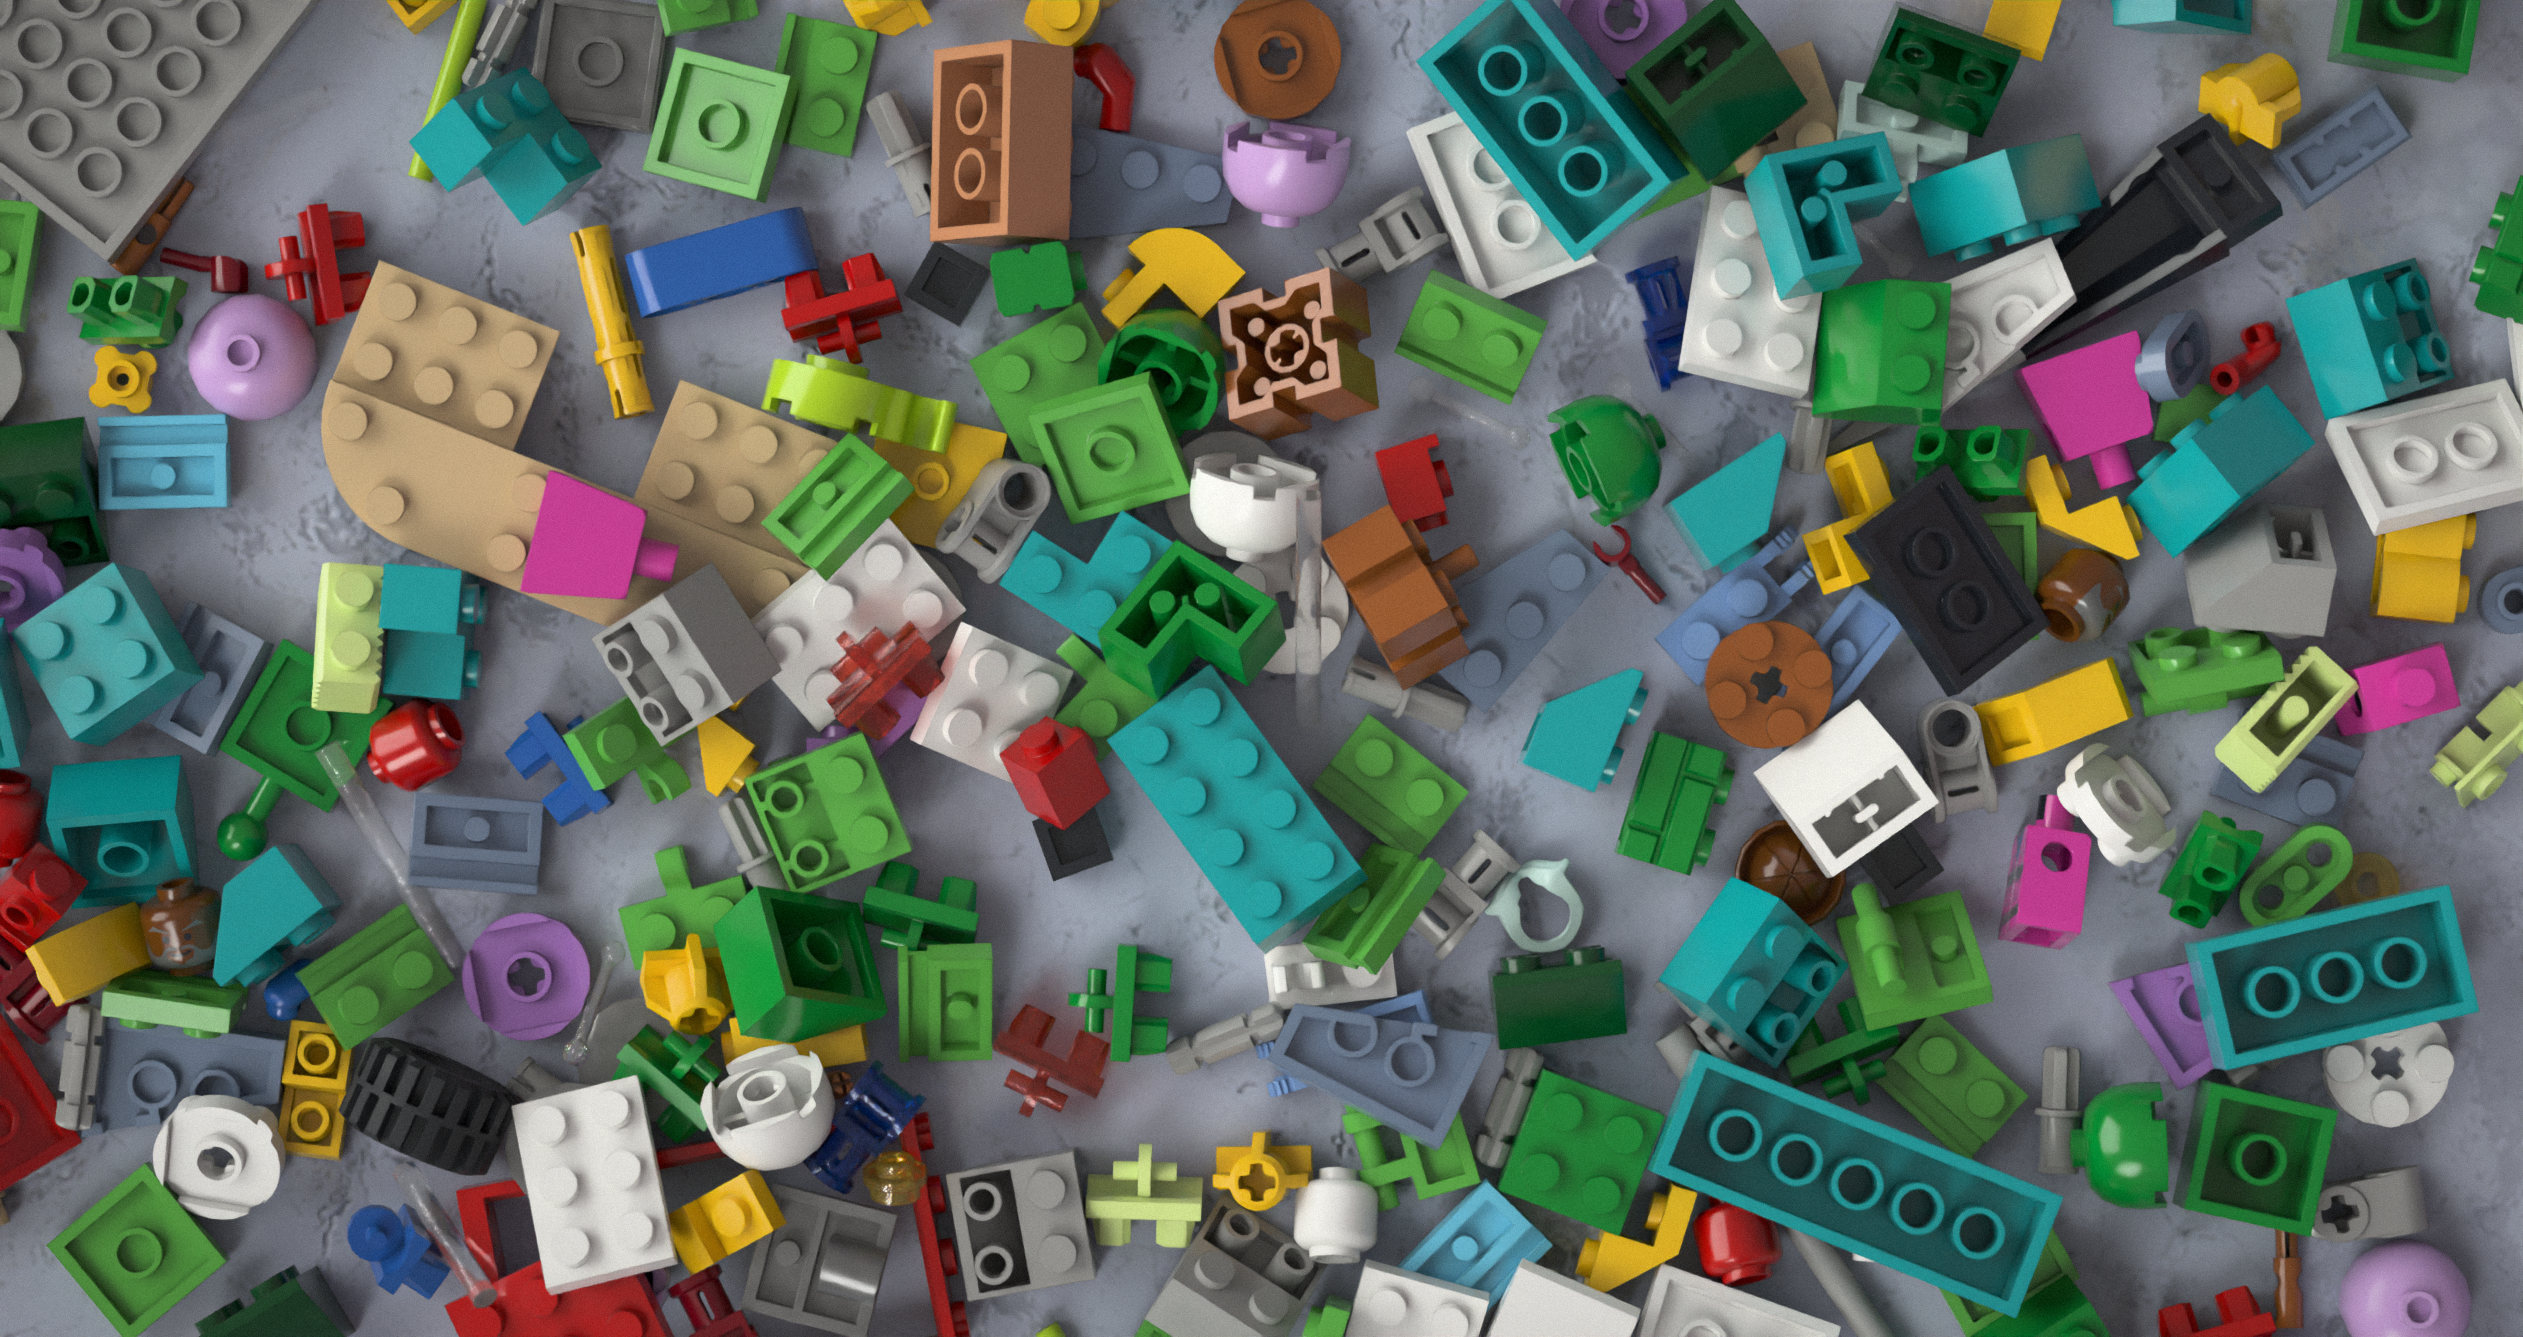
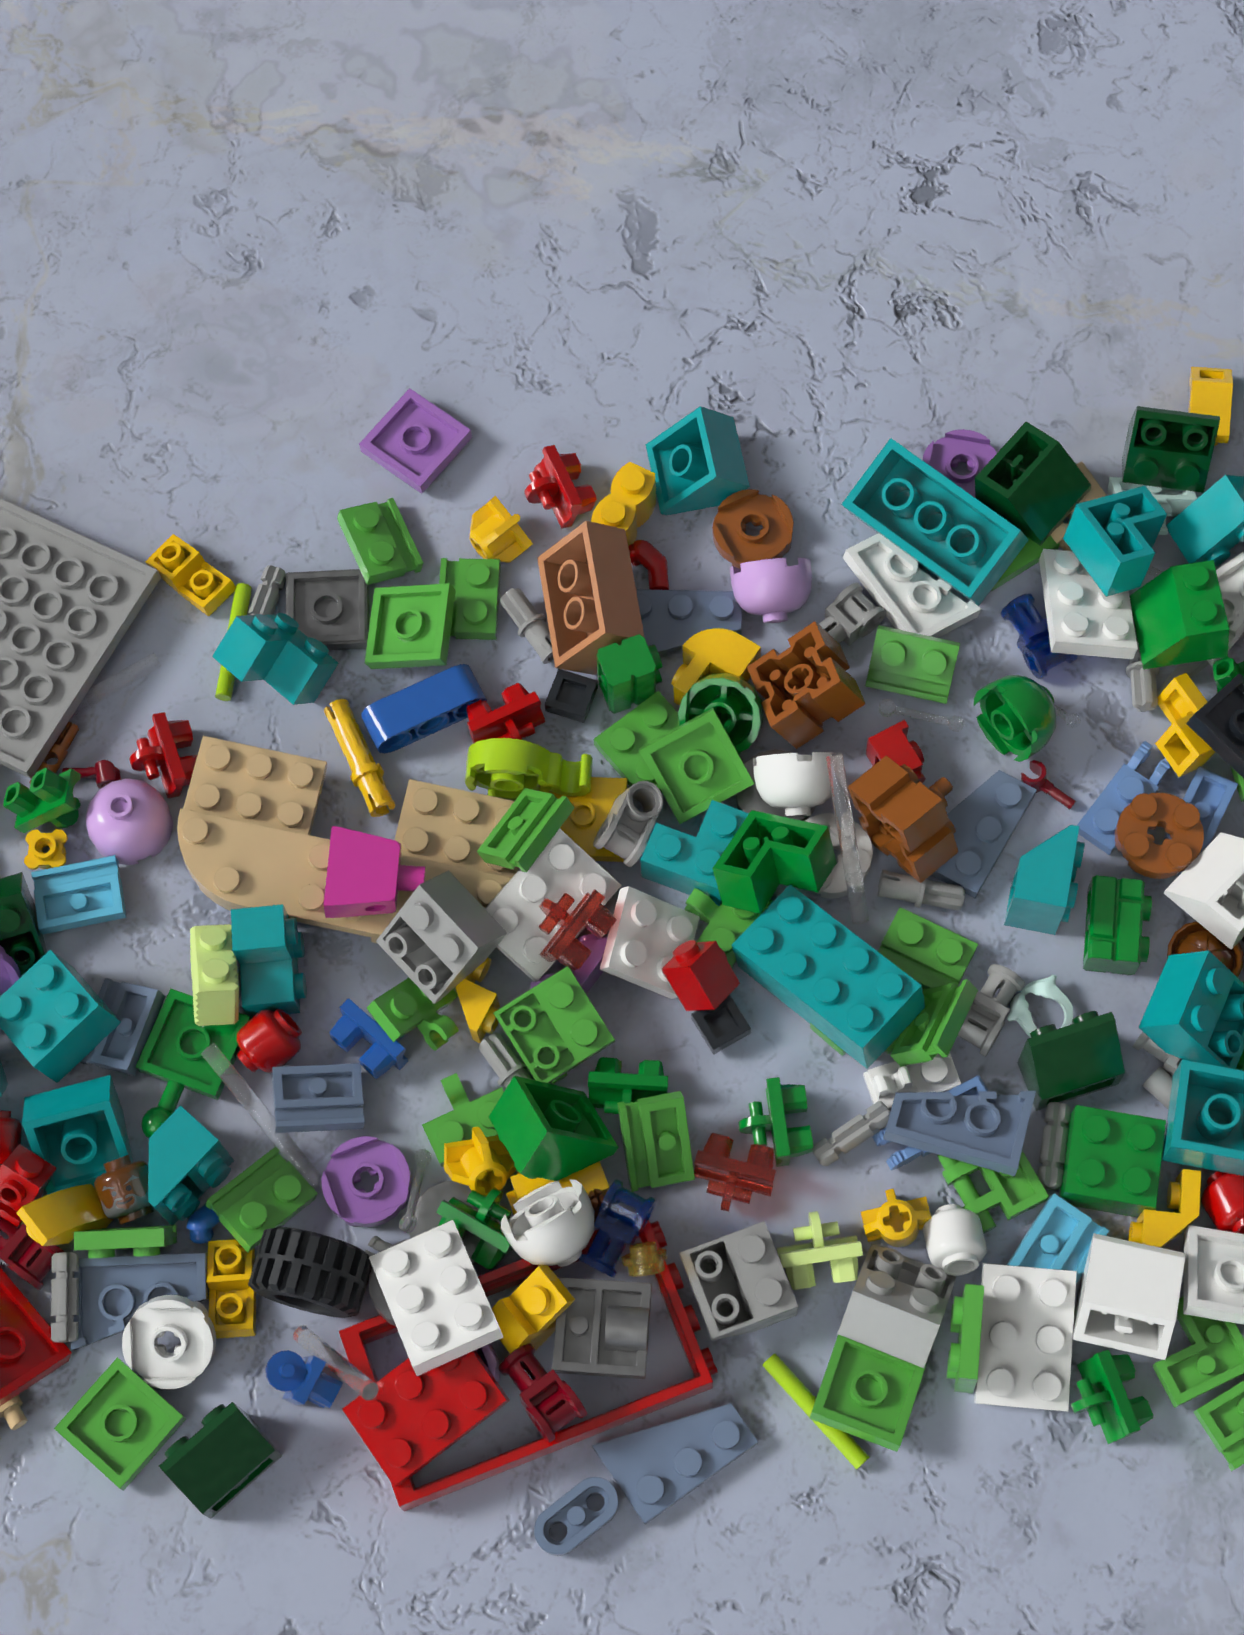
camera: 10 degrees left, 20 degrees down
(1730, 508) = (1103, 729): teal slope -> none

